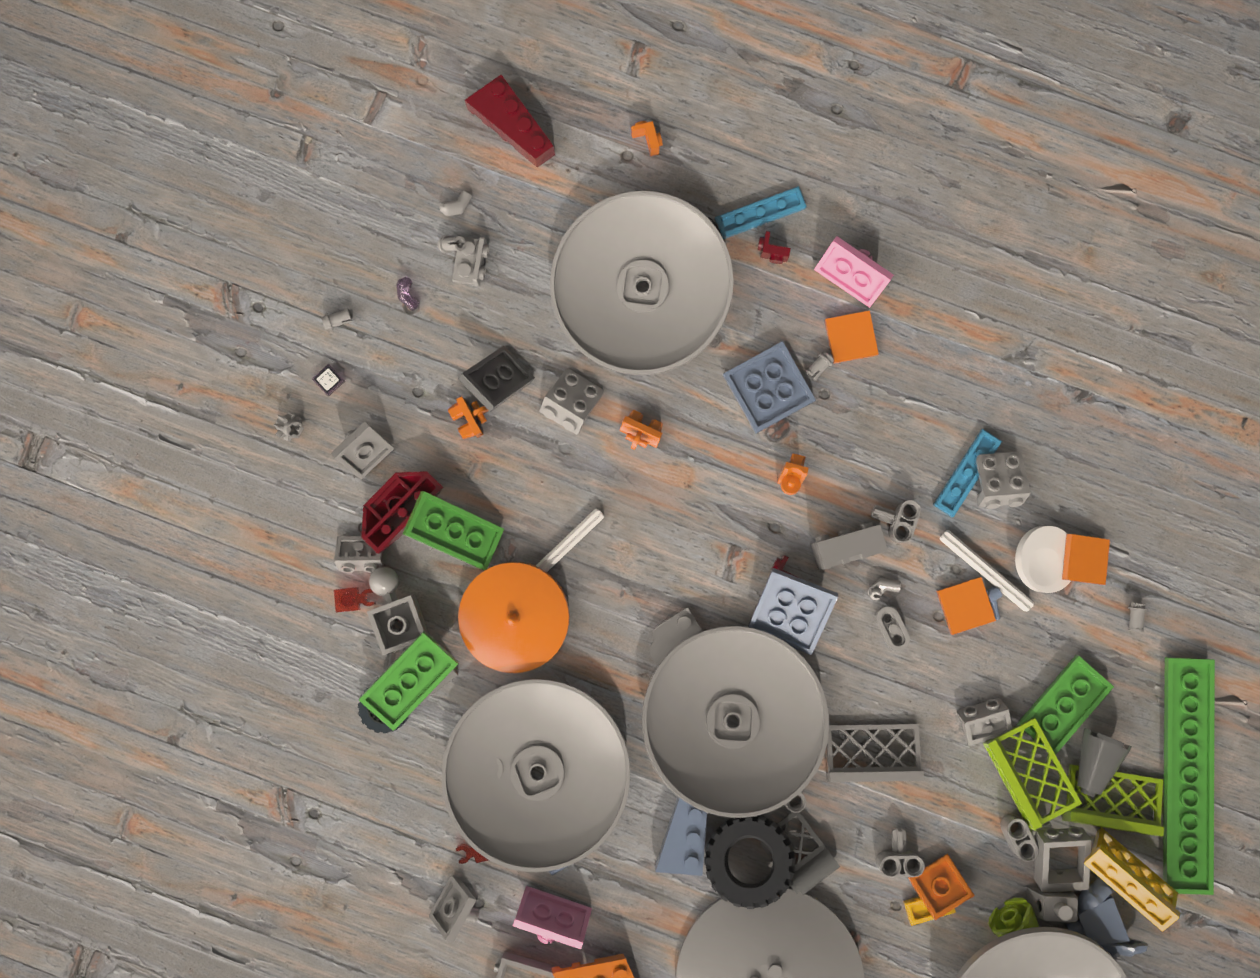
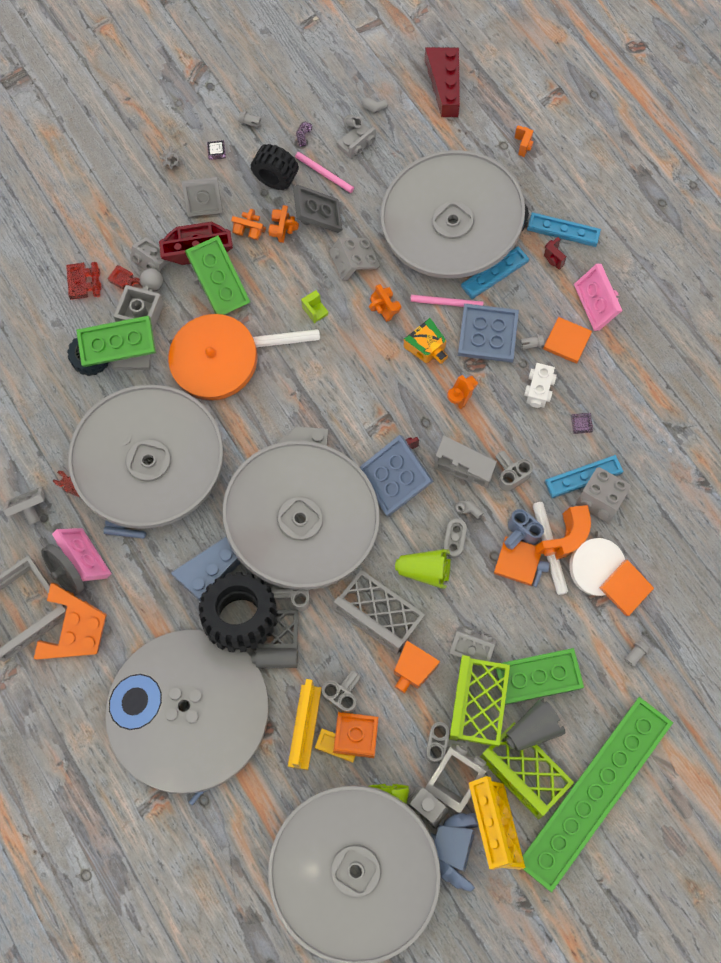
camera: 40 degrees right, 15 degrees down
(305, 636) = (77, 280): none -> clear red plate
(414, 362) = (274, 167): none -> black tyre
(444, 442) = (255, 228): none -> orange hips
(464, 323) = (324, 172): none -> bright pink bar
(550, 950) = (62, 569): none -> dark grey piece
(574, 486) = (313, 307): none -> lime panel
(701, 381) = (443, 301): none -> bright pink bar
(718, 443) = (426, 342): none -> torso
(719, 345) = (482, 281): none -> dark azure tile
(861, 409) = (538, 391): none -> white brick
(888, 681) = (426, 567): none -> lime cone
(889, 916) = (305, 726): none -> yellow fence
(927, 417) = (582, 423): none -> clear purple tile
(947, 784) = (414, 667): none -> orange torso
(952, 574) = (522, 530): none -> sand blue beam
(1005, 544) = (577, 525): none -> orange arch

